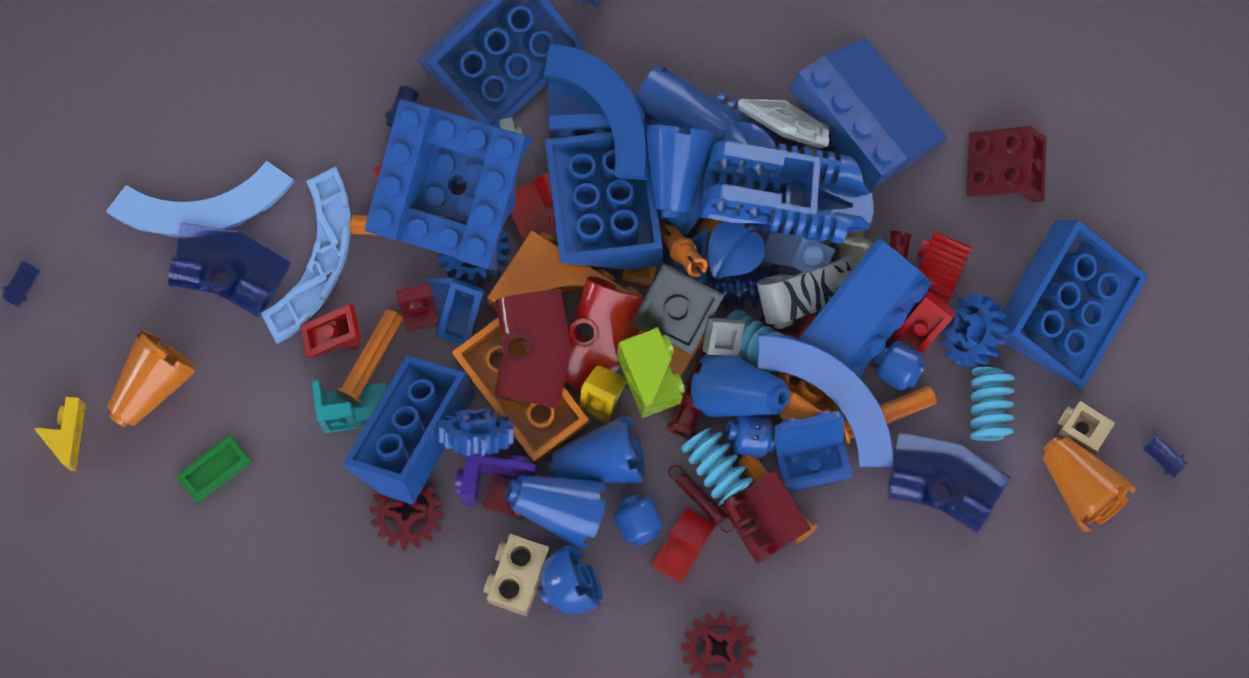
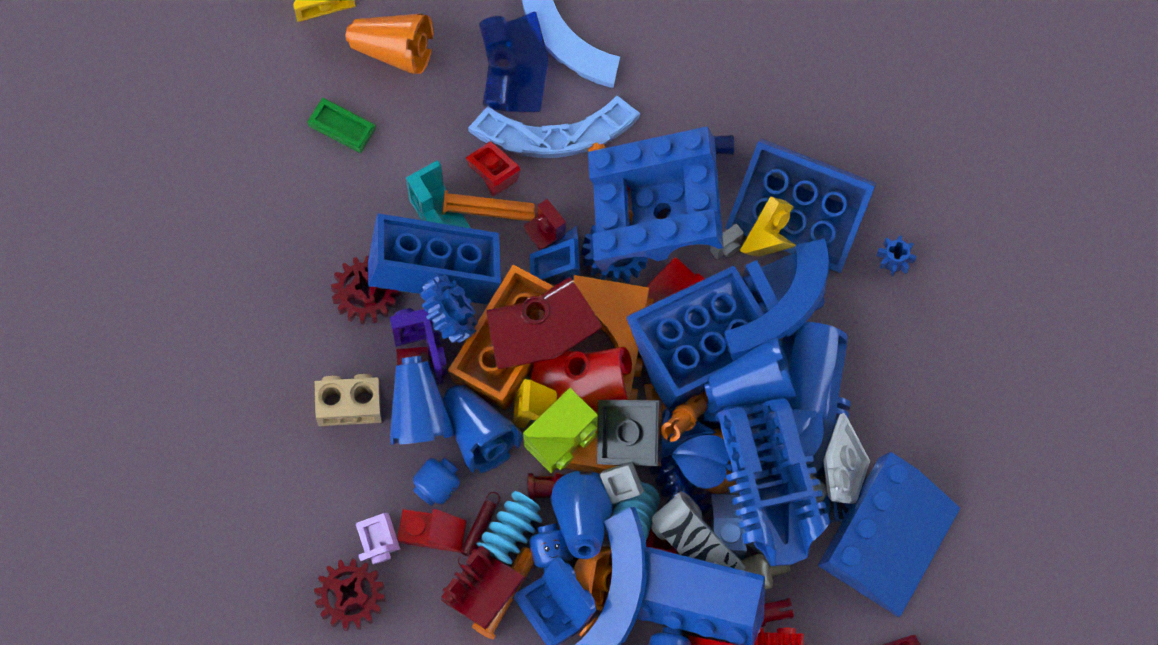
camera: 65 degrees right, 5 degrees down
(522, 98) = (765, 235): none -> yellow slope
(569, 583) = (358, 445): blue cylinder -> none
(673, 600) = (377, 538): none -> lavender bracket

